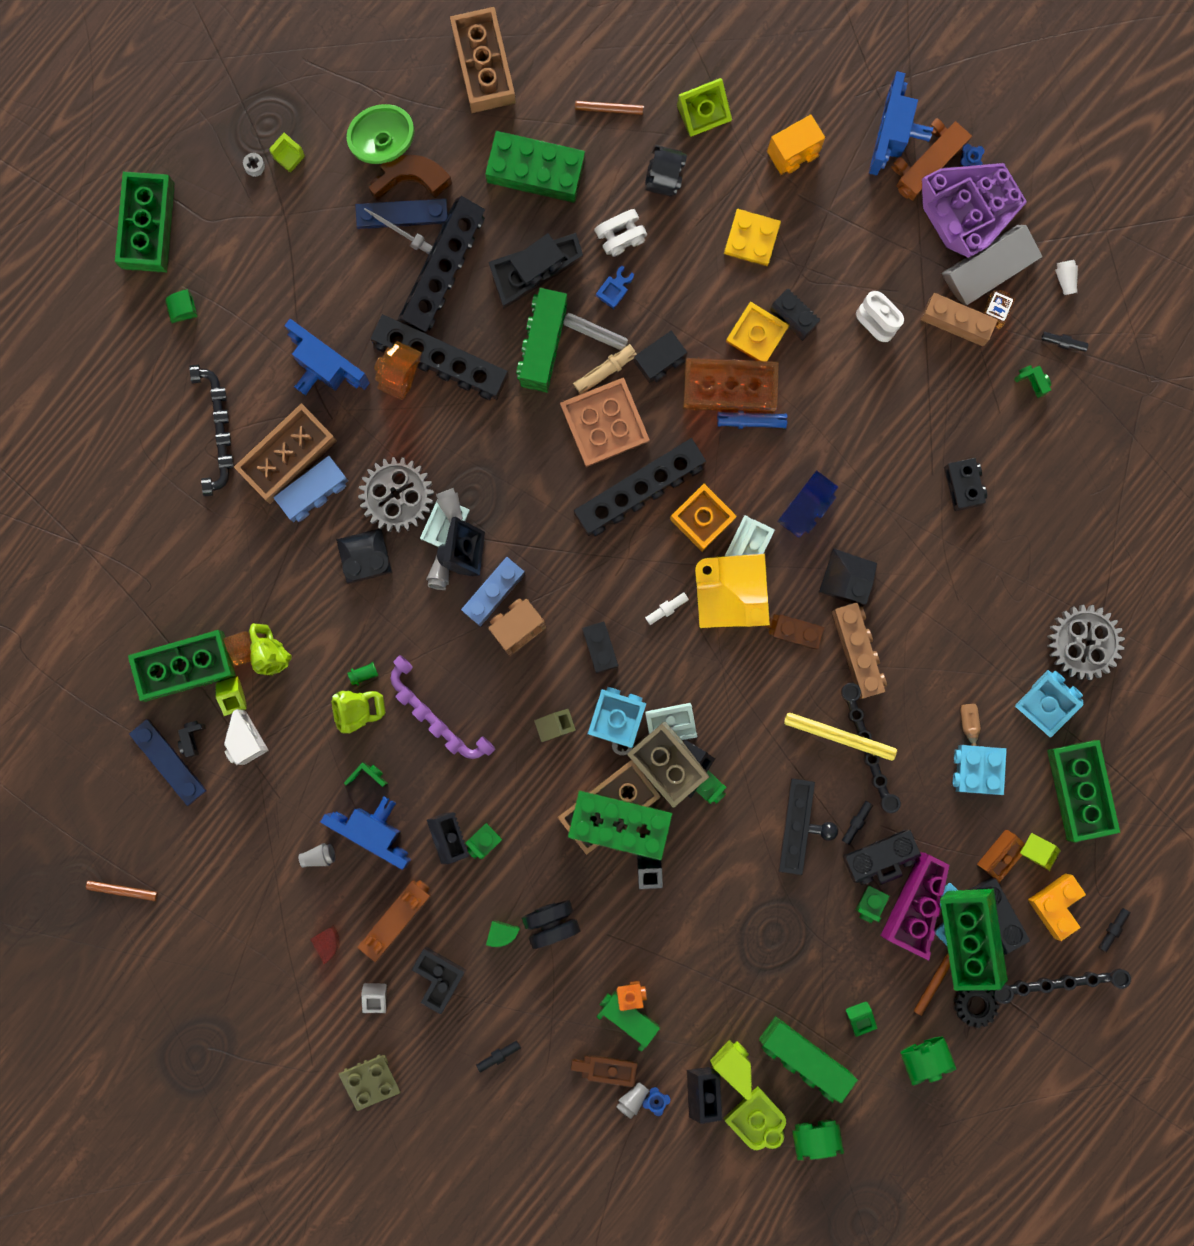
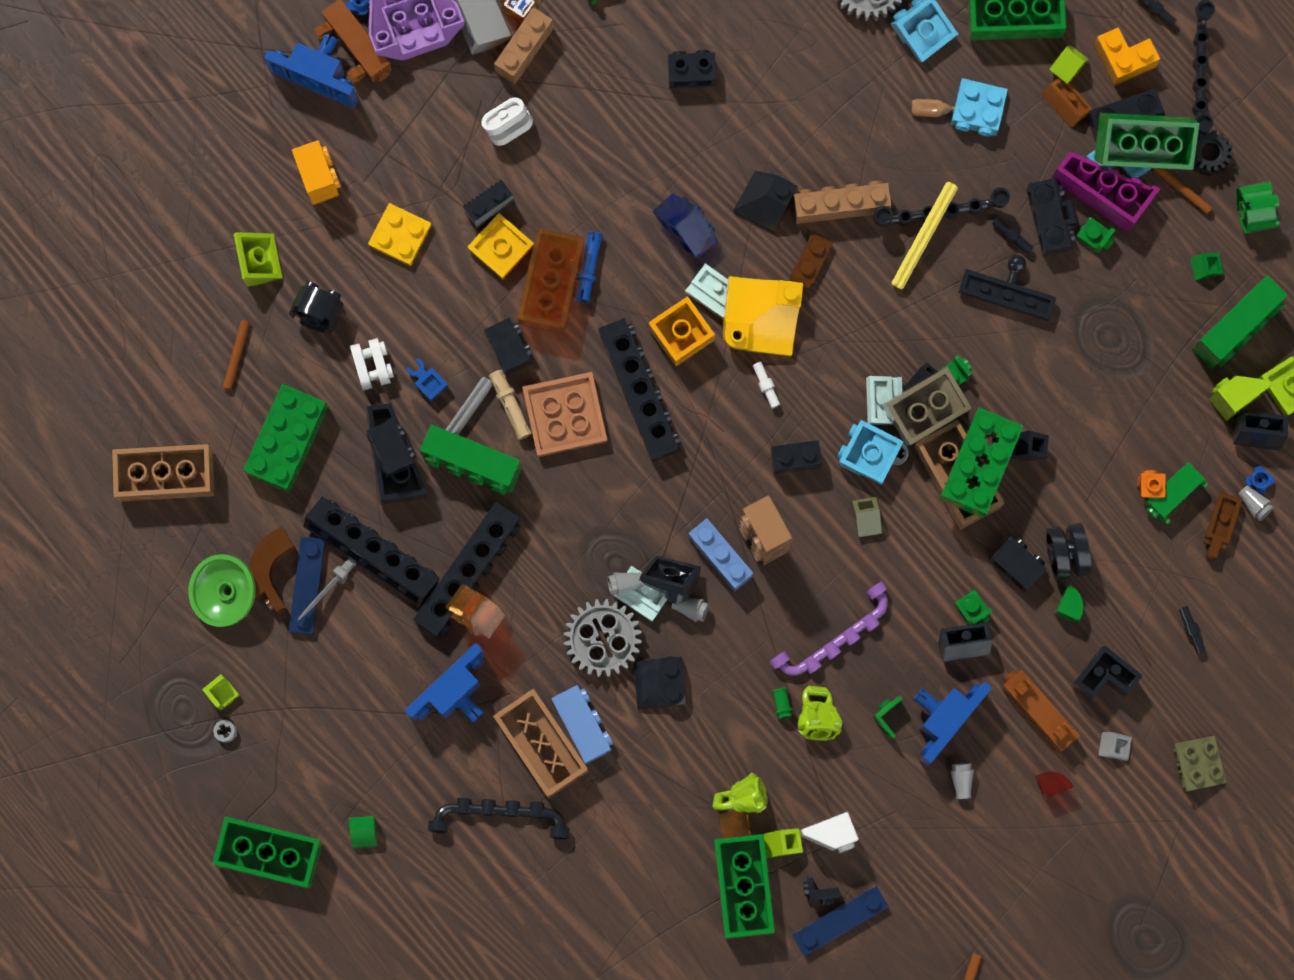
camera: 75 degrees left, 5 degrees down
(533, 878) = (1018, 563): none -> black brick

